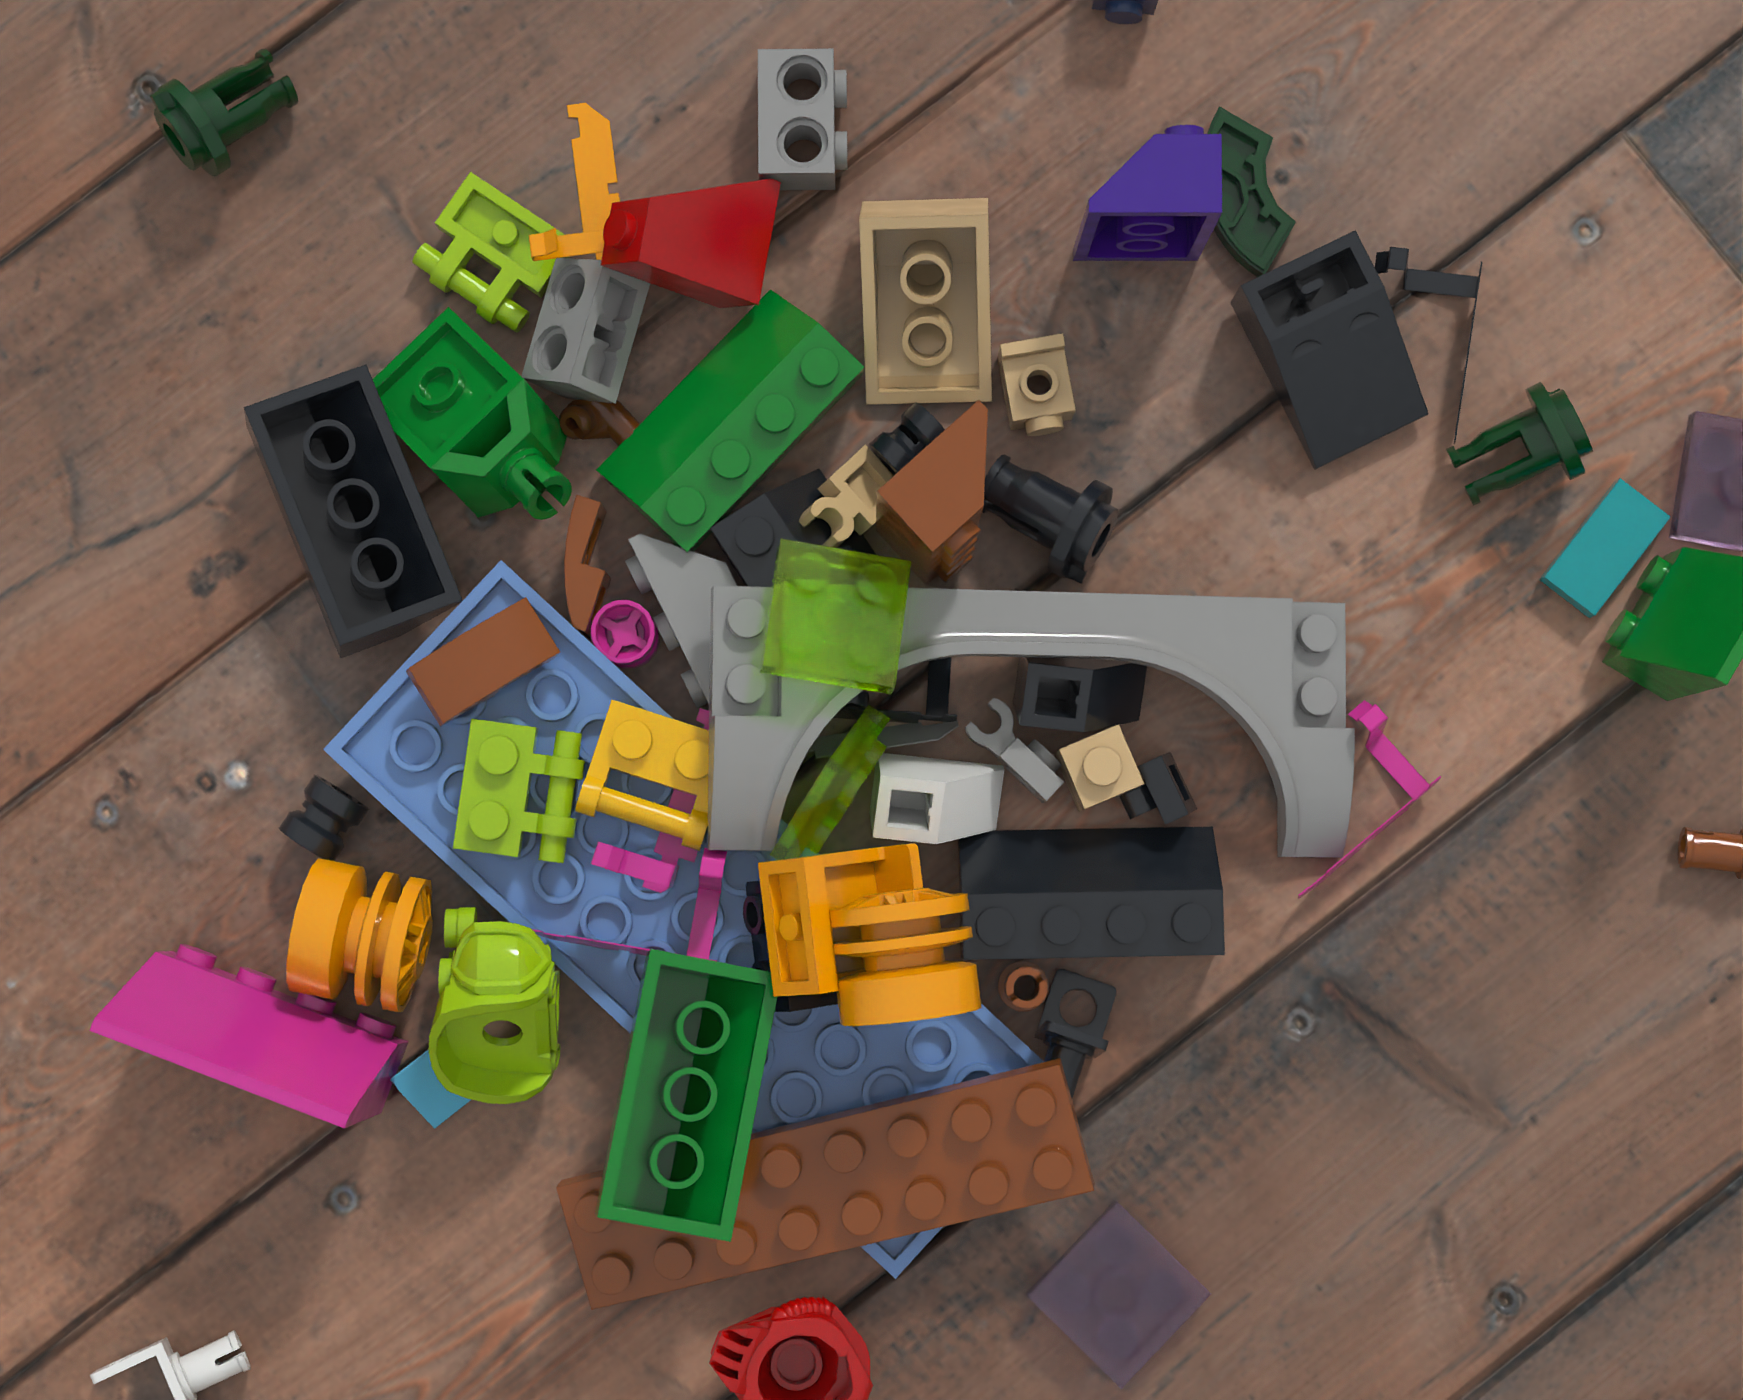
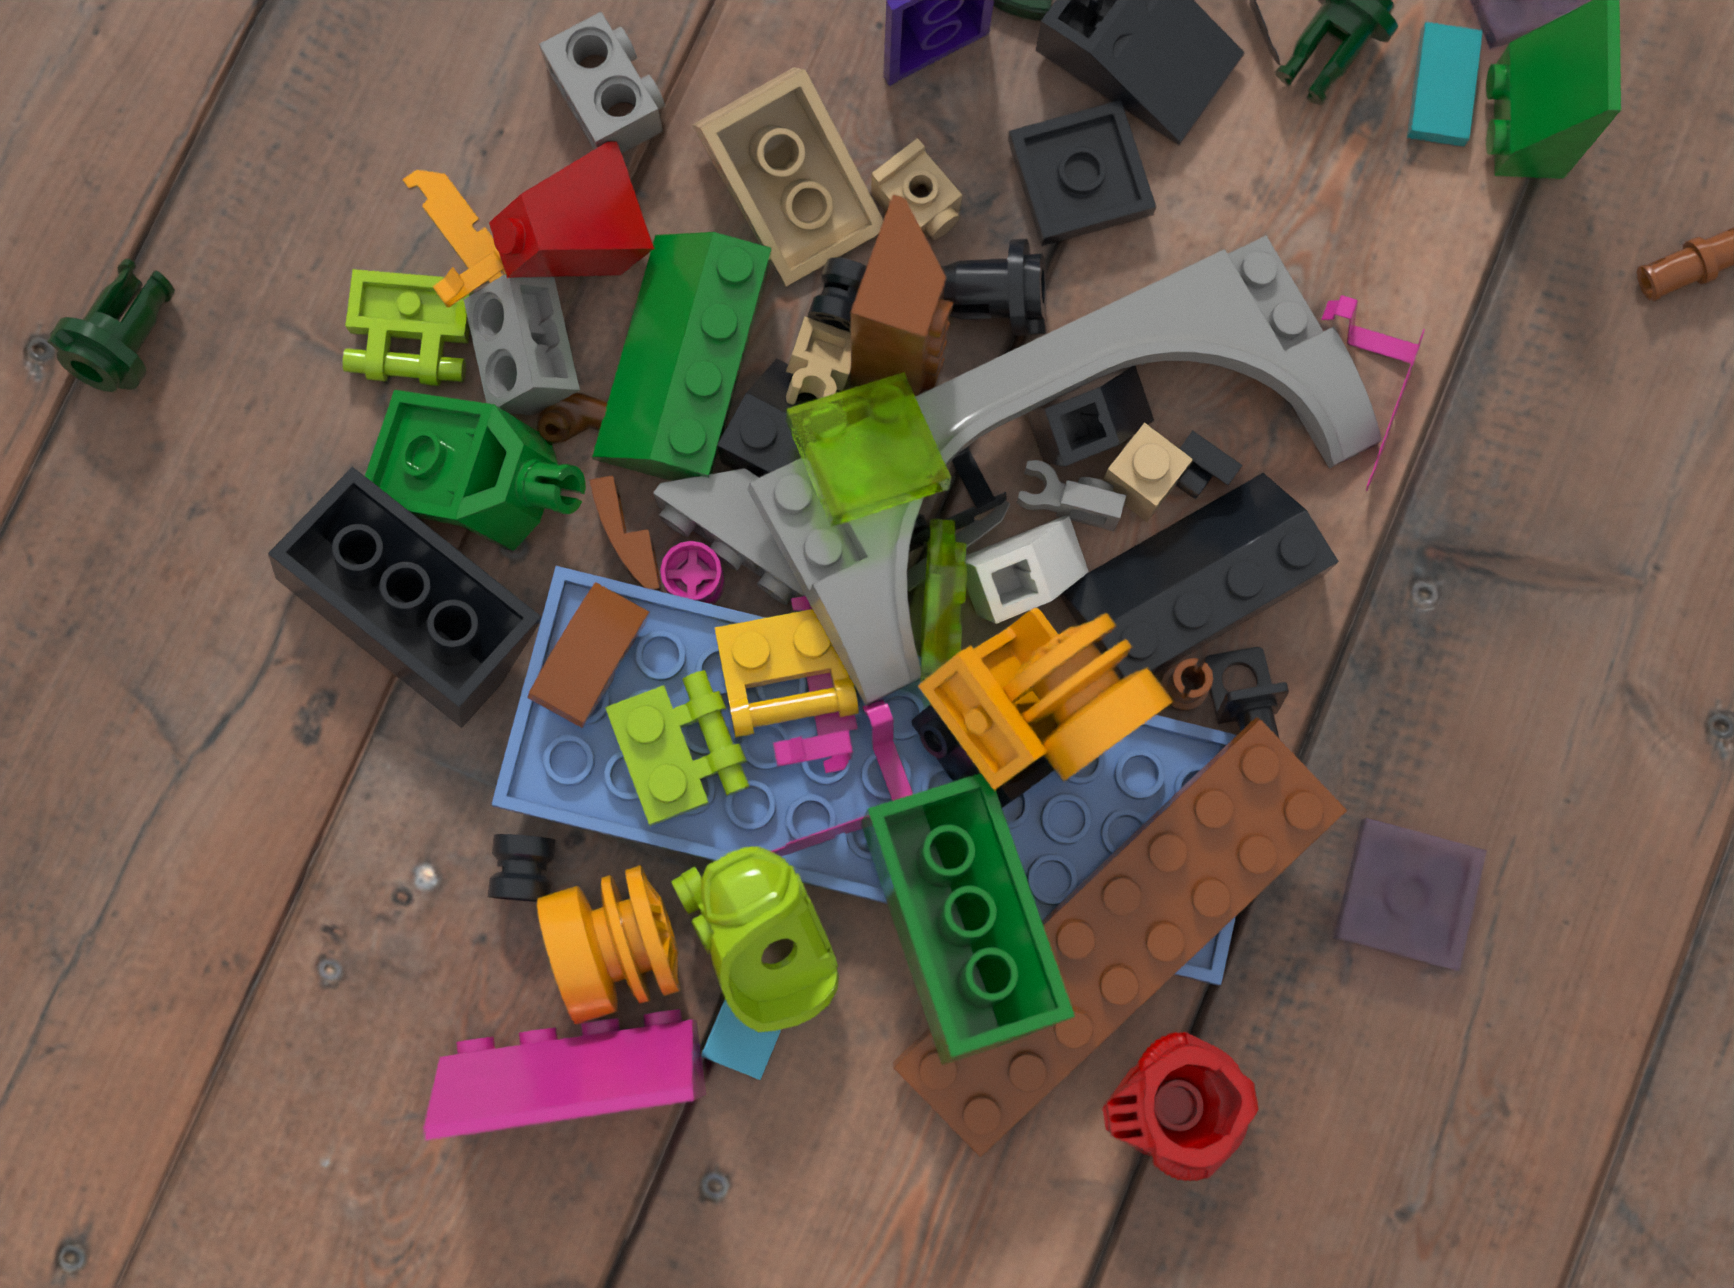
camera: 30 degrees left, 5 degrees down
(1204, 447) = (1081, 172): none -> black plate

